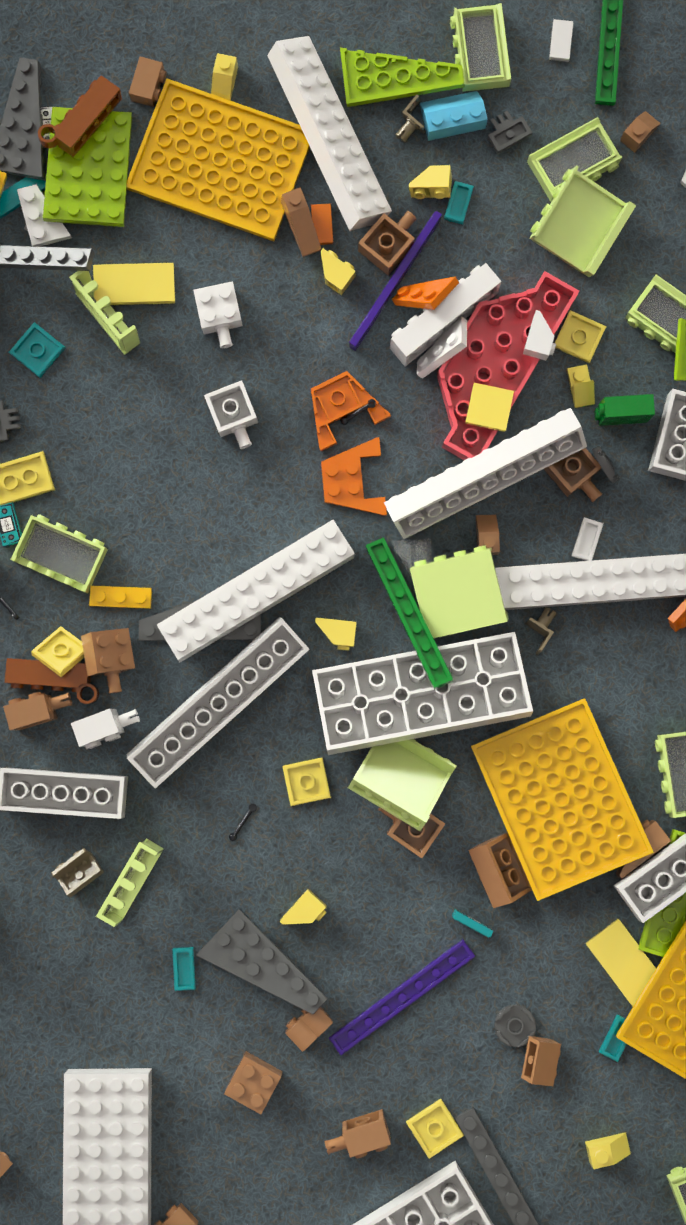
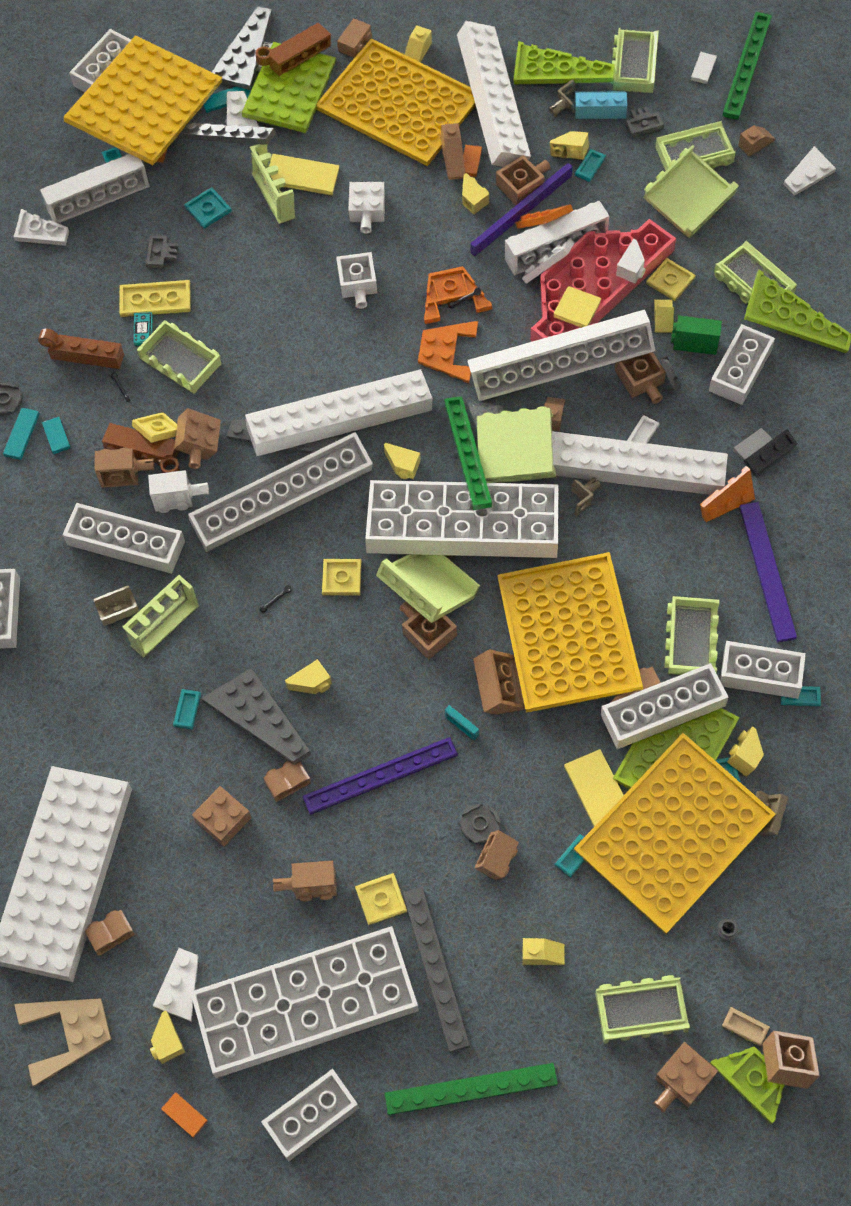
camera: 15 degrees right, 20 degrees down
(120, 597) = (221, 400): yellow plate -> none

